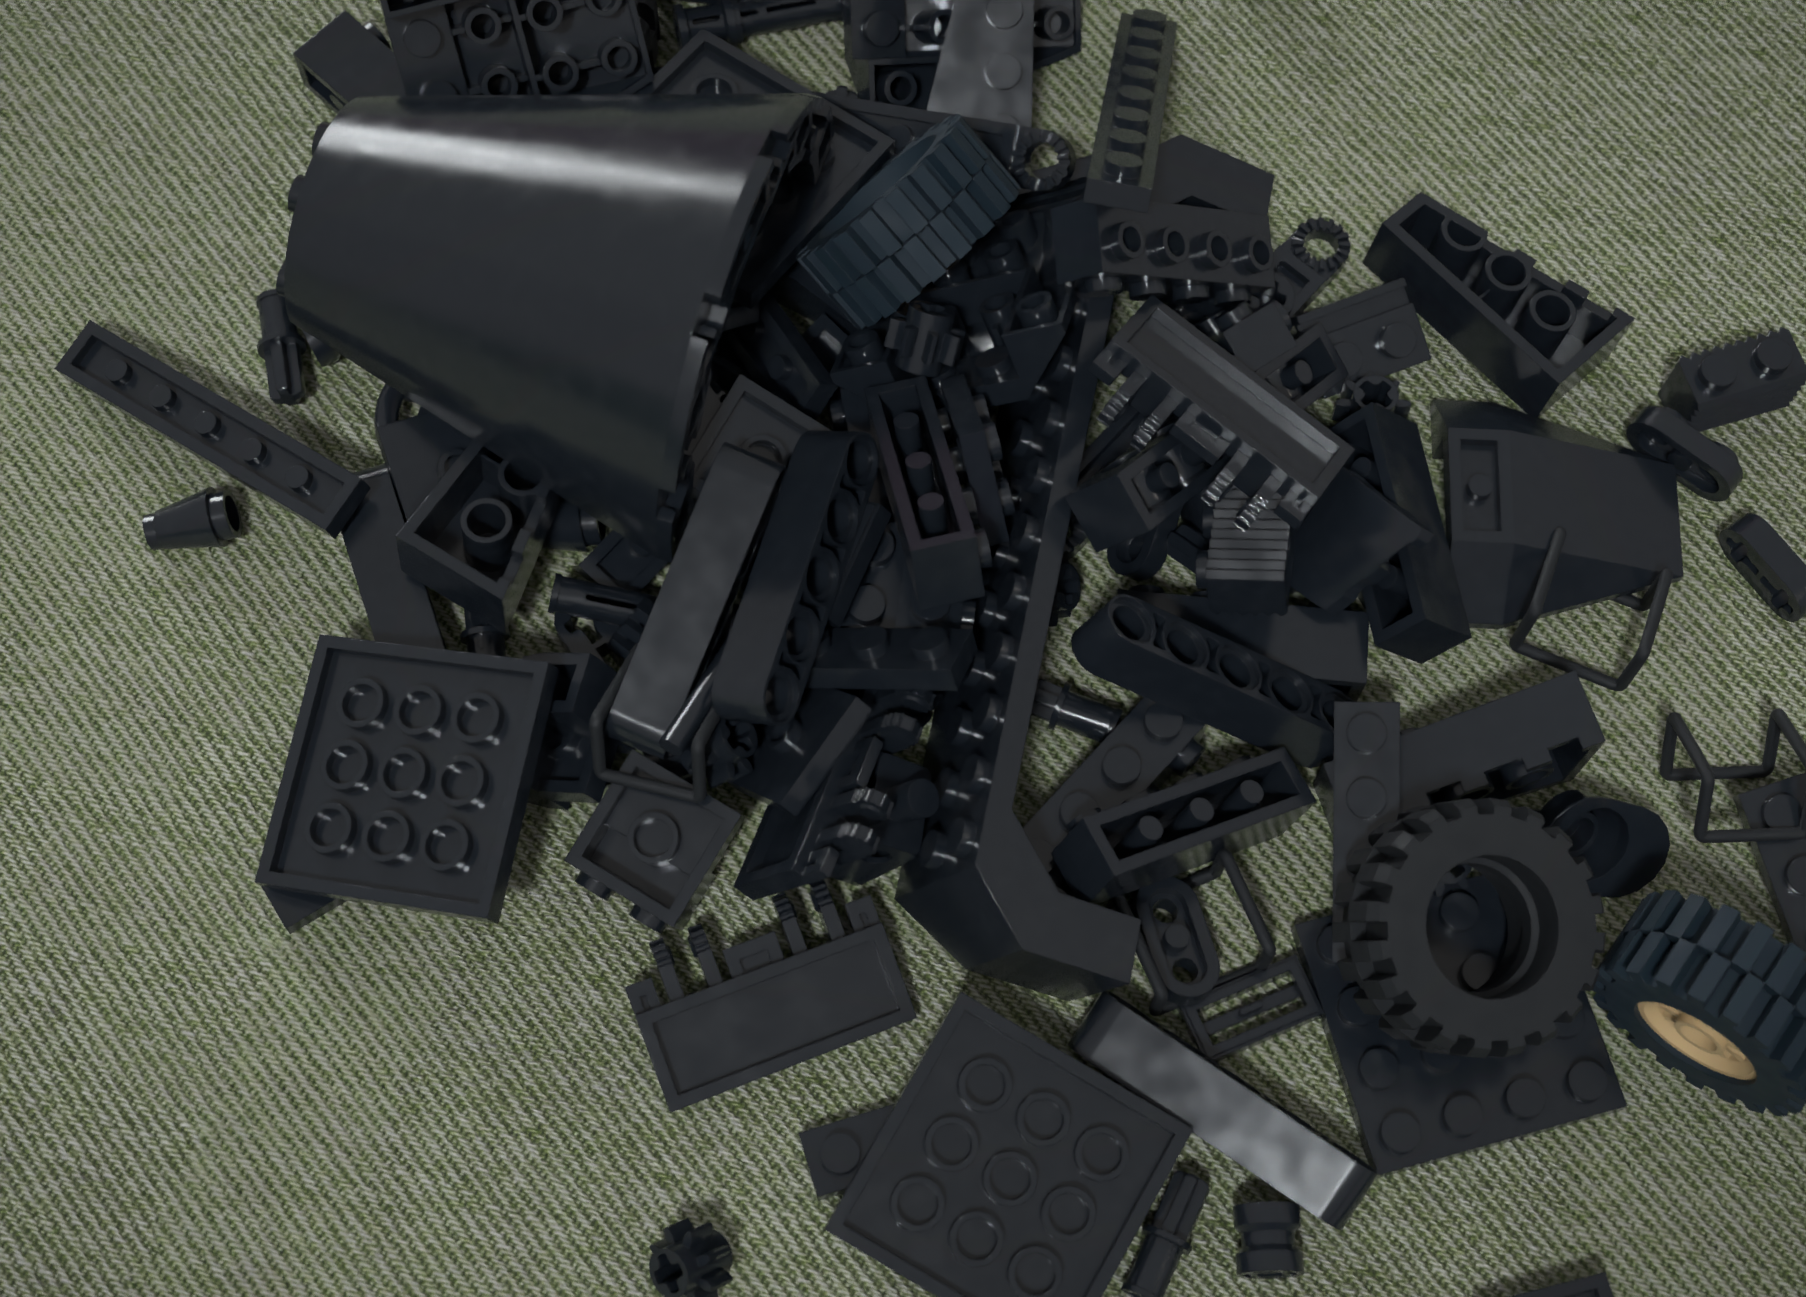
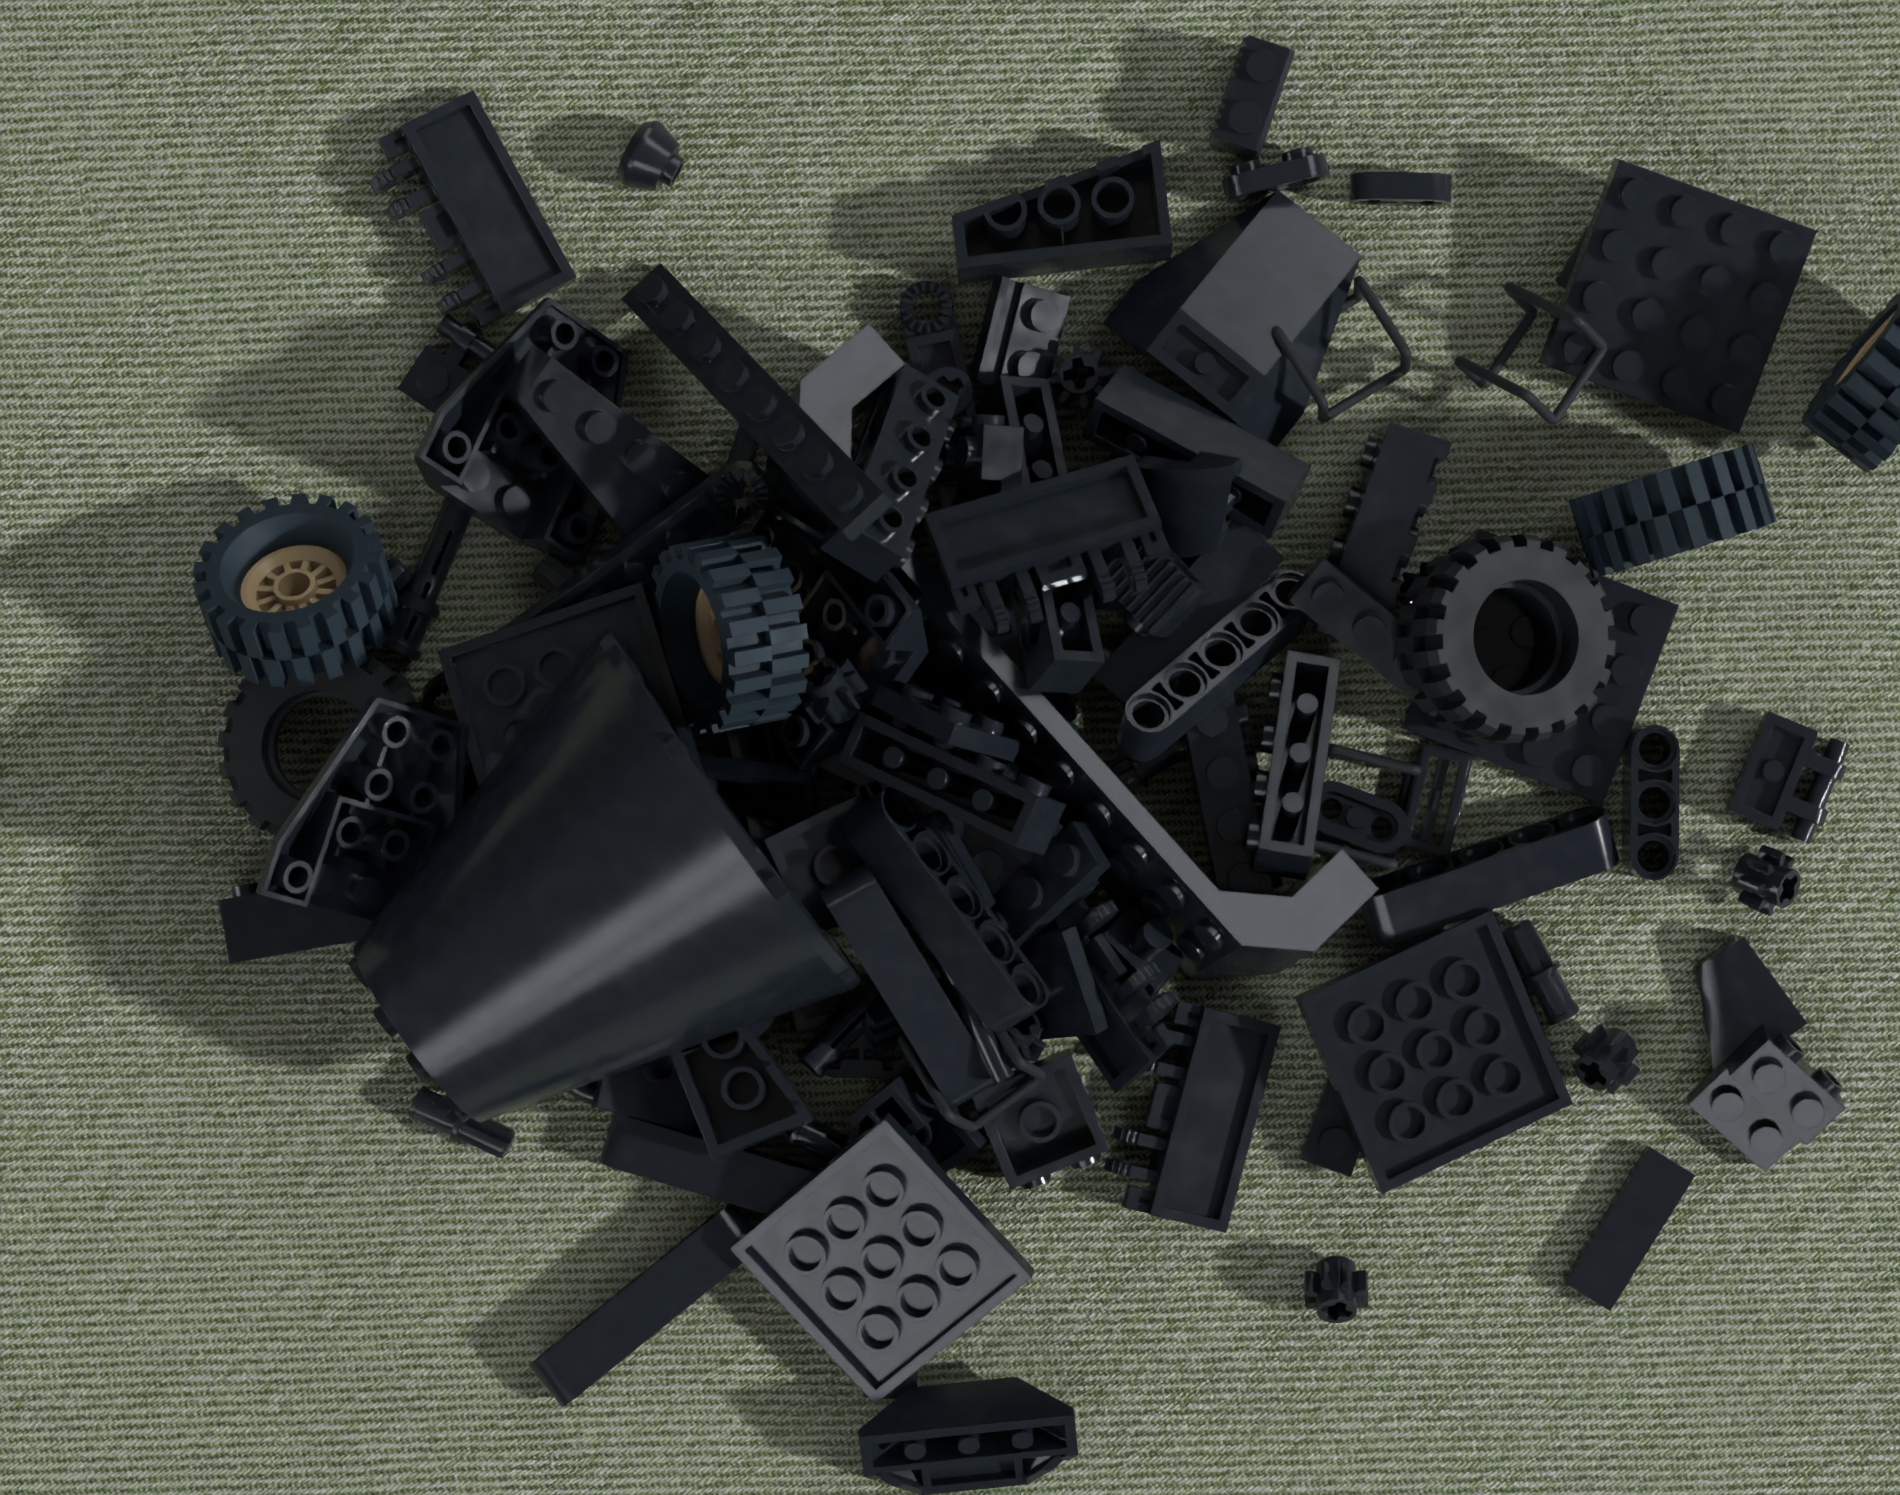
camera: 50 degrees left, 20 degrees up
(195, 522) = (562, 1271): black cone -> none
(202, 610) = (642, 1307): none -> black beam
(213, 429) = (503, 1219): black plate -> none
(275, 995) = (968, 1437): none -> black wedge
(1268, 1240) = (1591, 910): black wheel -> none
(1445, 1201) = (1664, 826): none -> black beam
(1617, 838) = (1500, 484): black piece -> none

